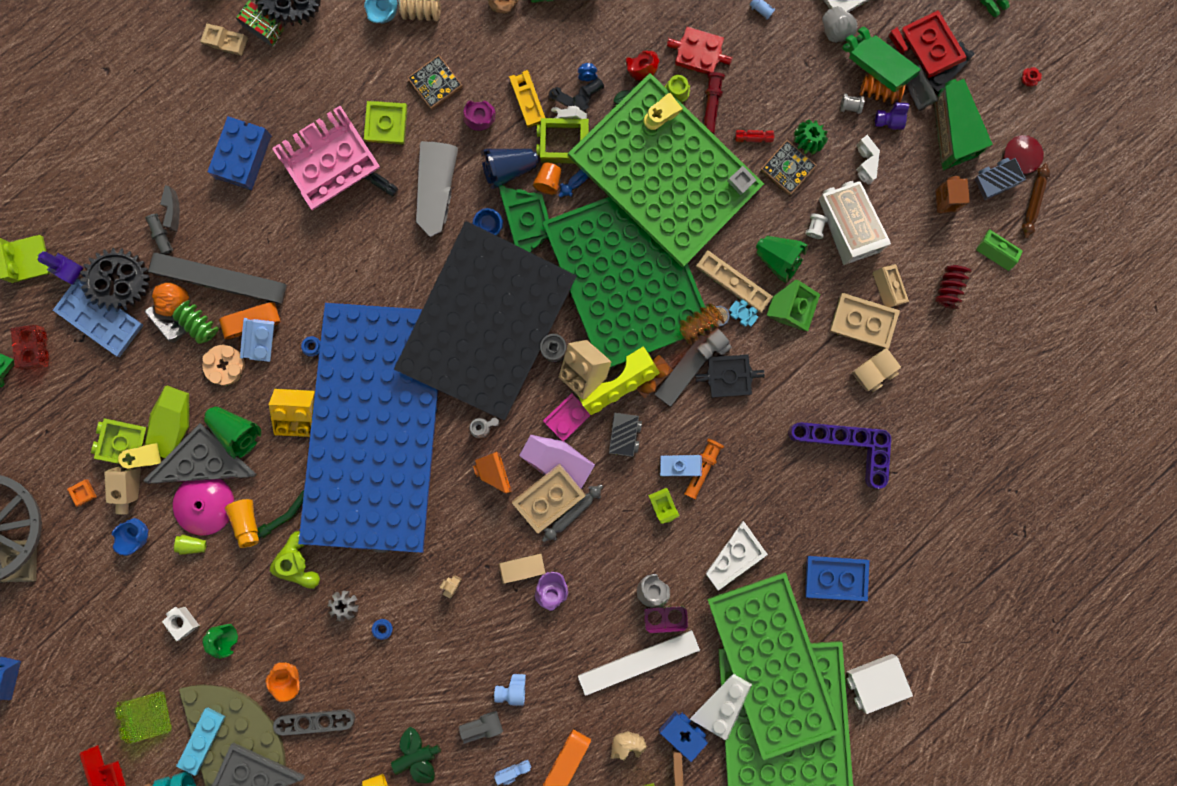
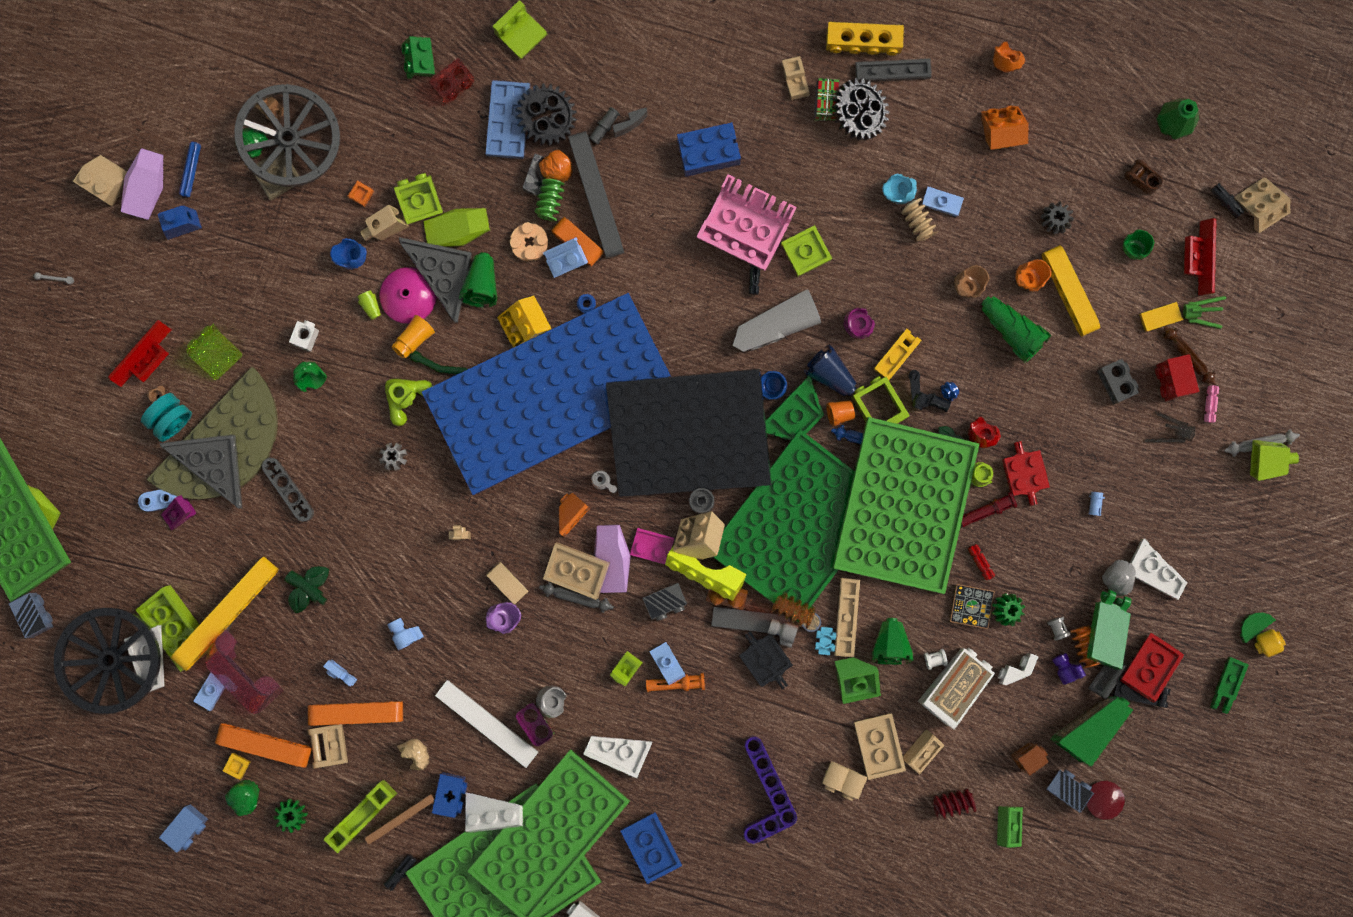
camera: 60 degrees right, 0 degrees up
(61, 266) = (531, 67): dark purple beam -> none
(143, 456) = (418, 225): light yellow piece -> none
(201, 741) = (221, 409): medium azure plate -> none
(283, 682) = (305, 446): orange hair -> none
(376, 632) = (386, 499): blue plate -> none
(435, 82) = (865, 270): tile -> none
(486, 726) = (364, 630): dark grey piece -> none
(572, 112) = (906, 399): white plate -> none
(663, 111) = (953, 474): light yellow piece -> none
(741, 180) = (934, 573): light grey plate -> none
(898, 40) = (1139, 633): red piece -> none
(1027, 80) = (1172, 767): red plate -> none
(1035, 201) = (1071, 833): reddish brown wheel -> none

